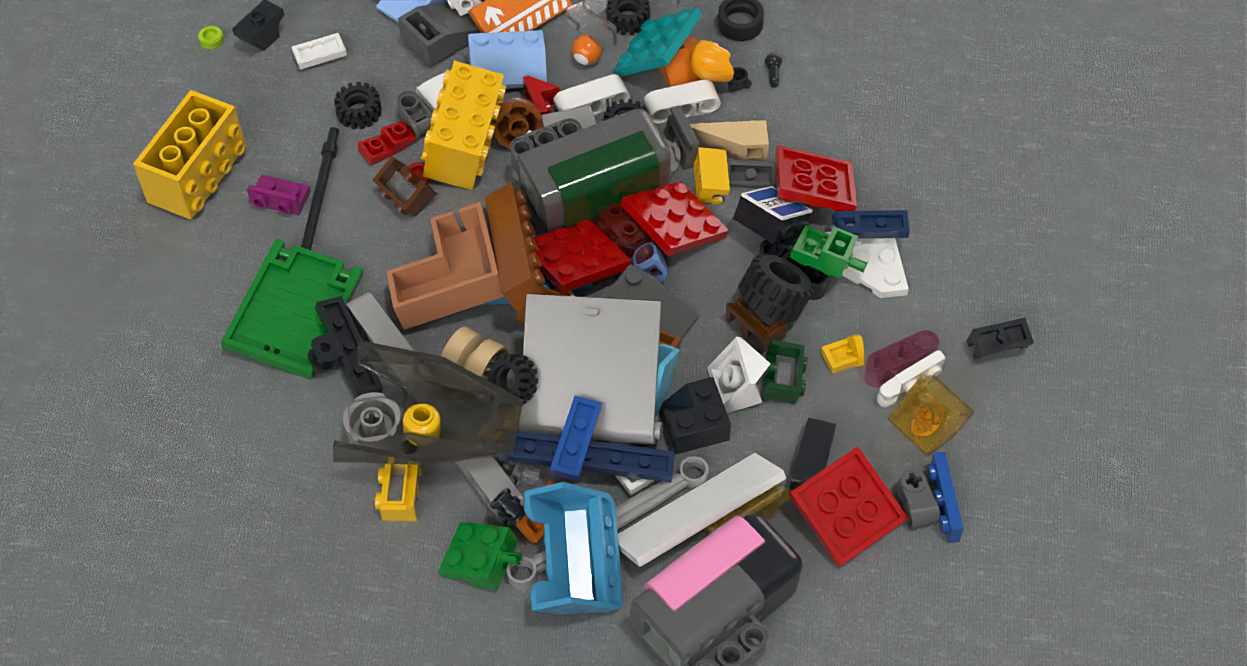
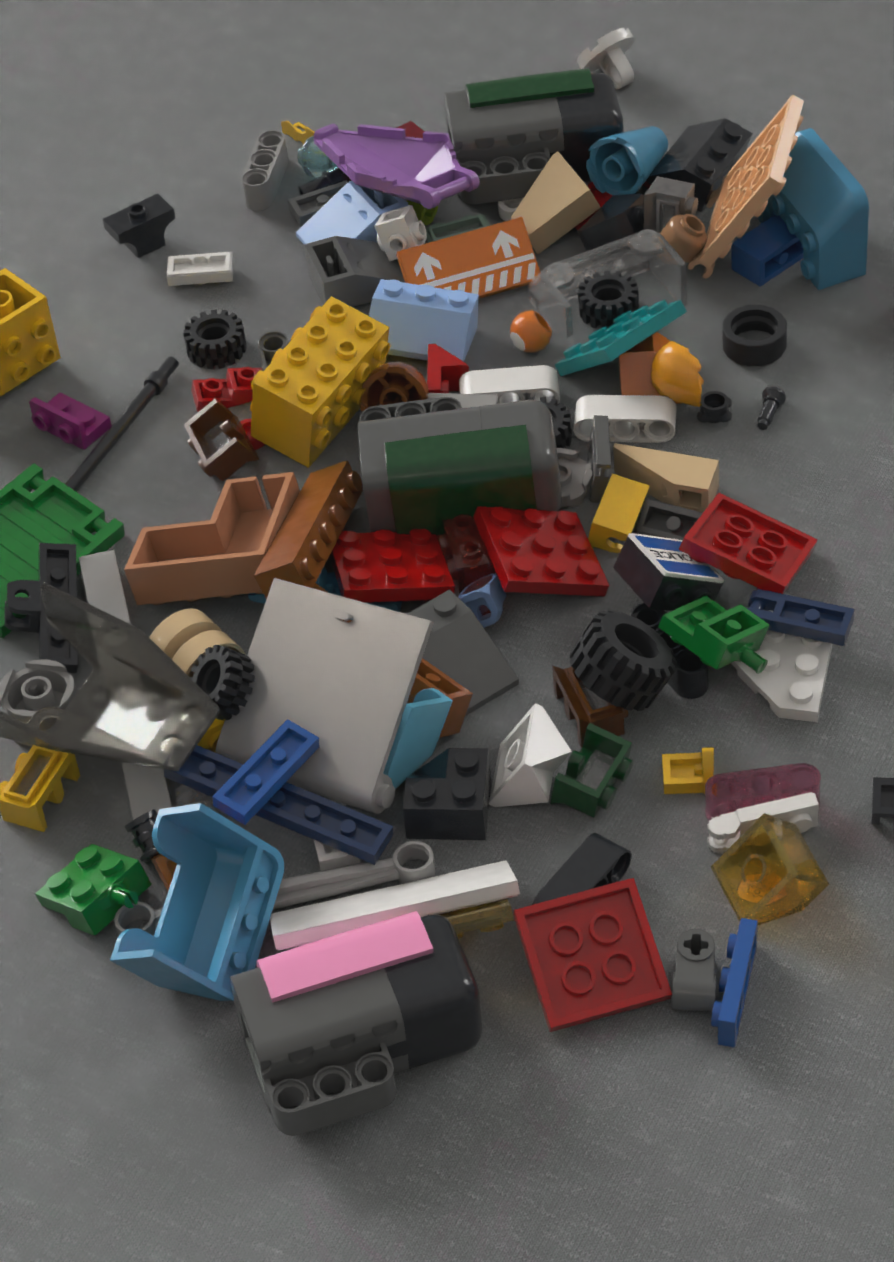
camera: 25 degrees right, 10 degrees down
(211, 37) = (83, 229): lime tile -> none
(422, 420) = (87, 701): yellow head -> none

